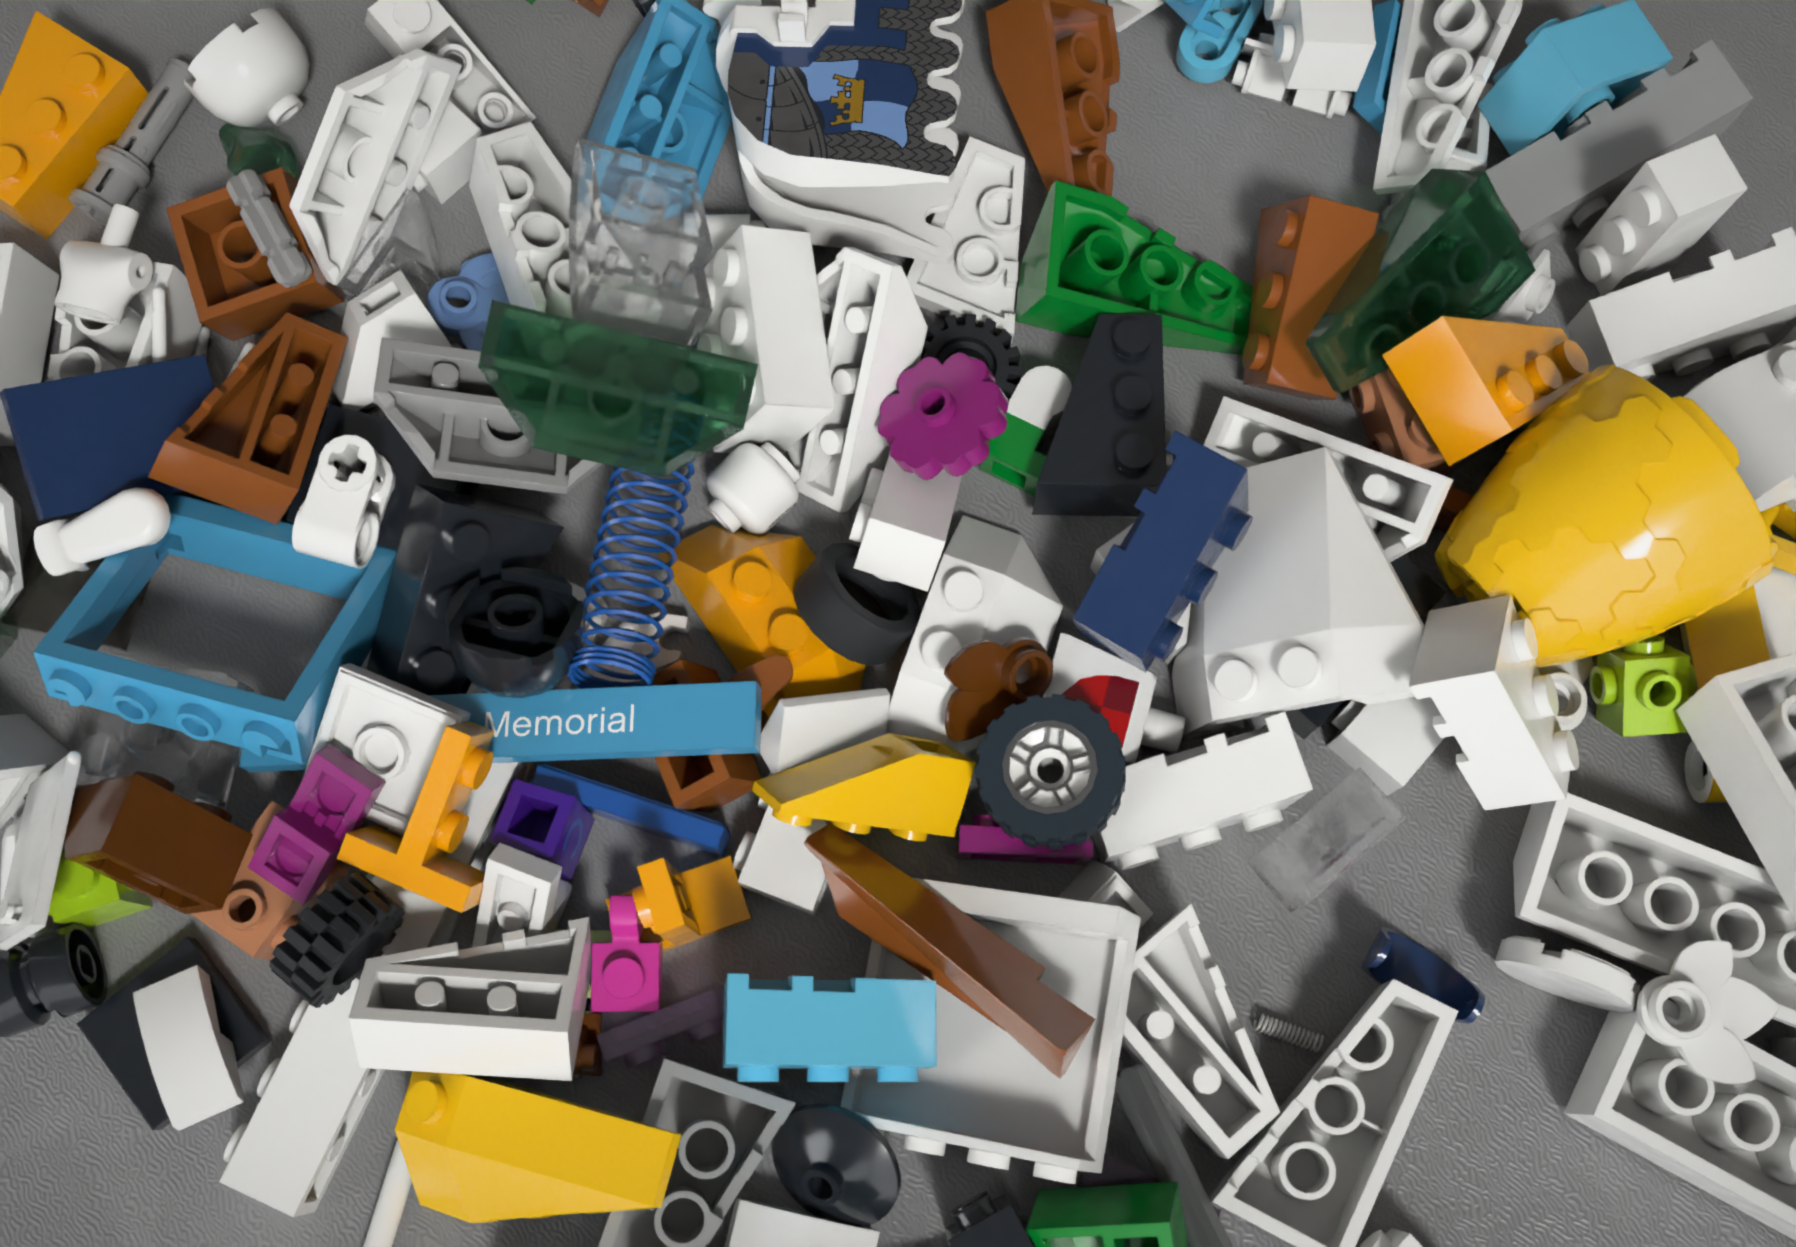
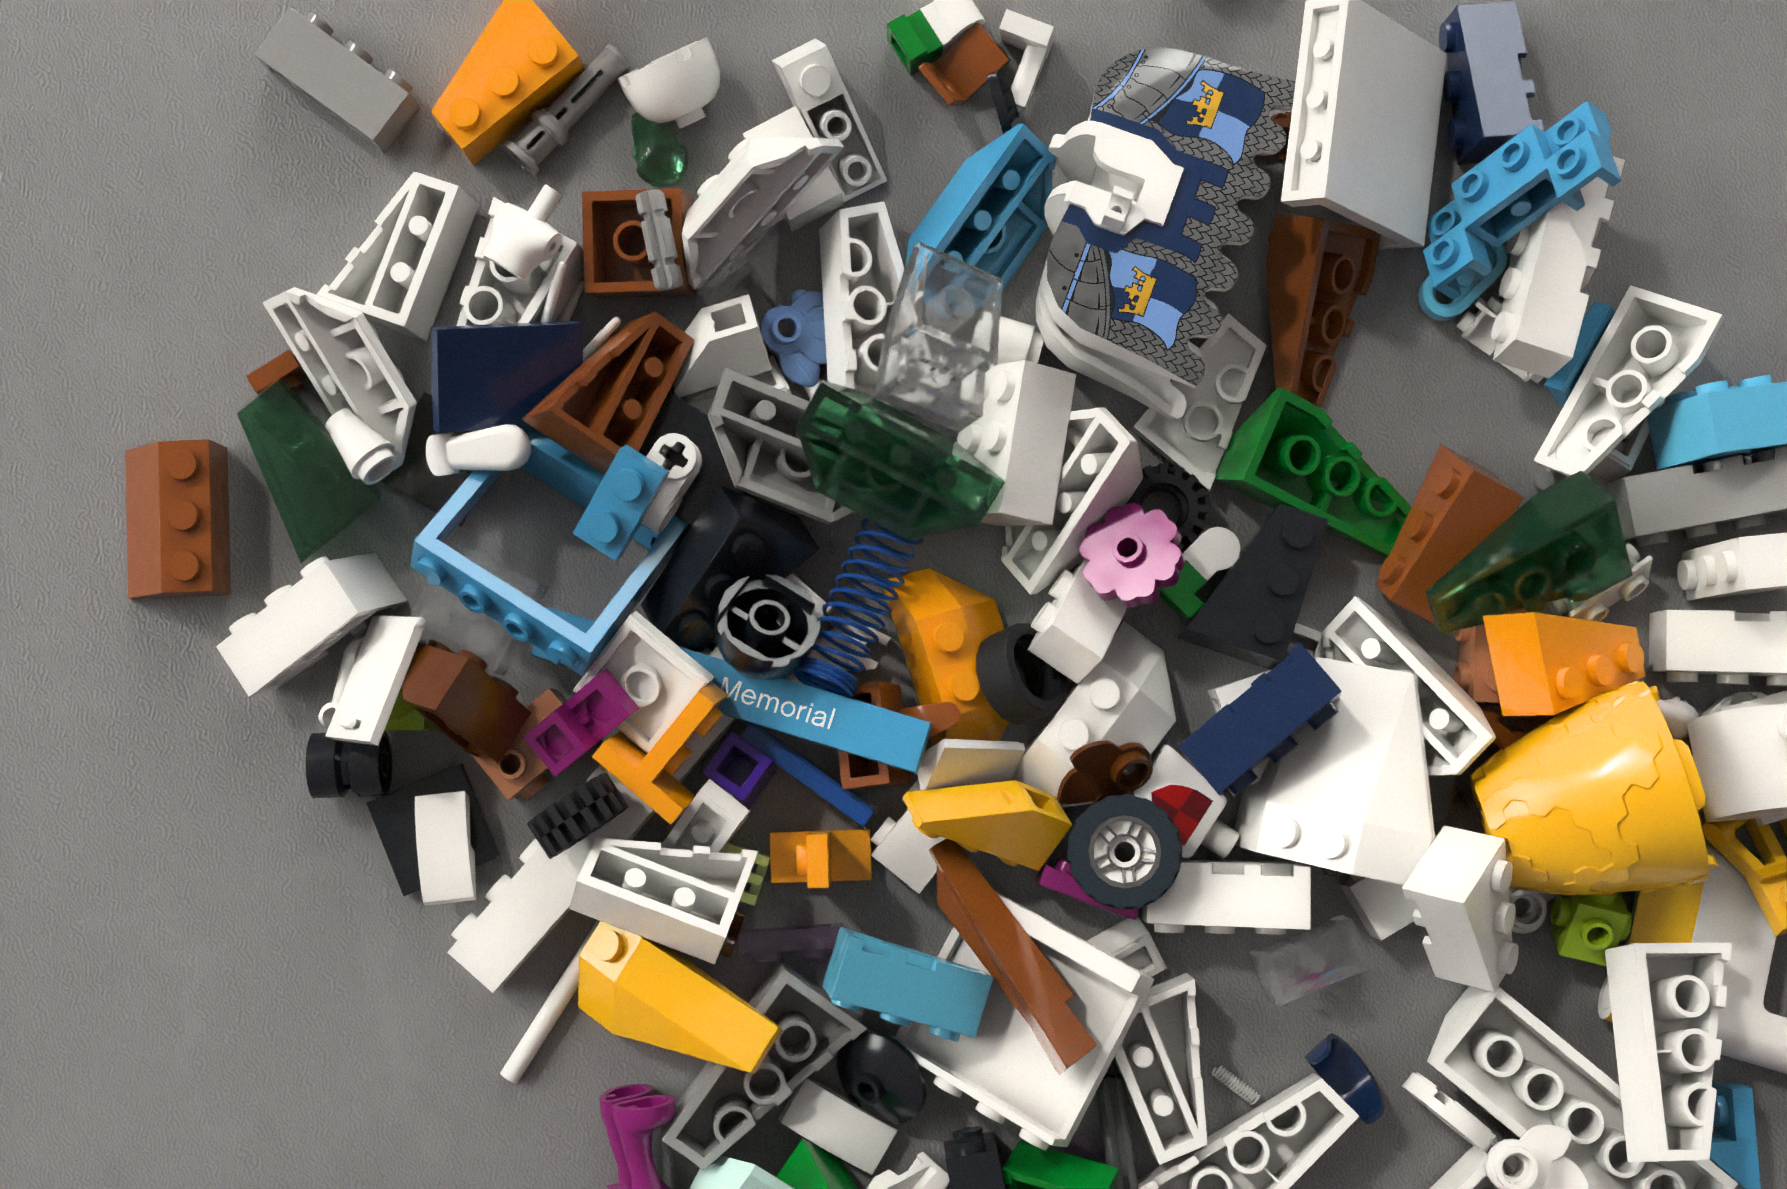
camera: 15 degrees right, 10 degrees up
(295, 536) = (621, 502): none -> dark azure plate
(627, 970) = (772, 889): dark pink plate -> none
(752, 488) = (969, 556): white head -> none

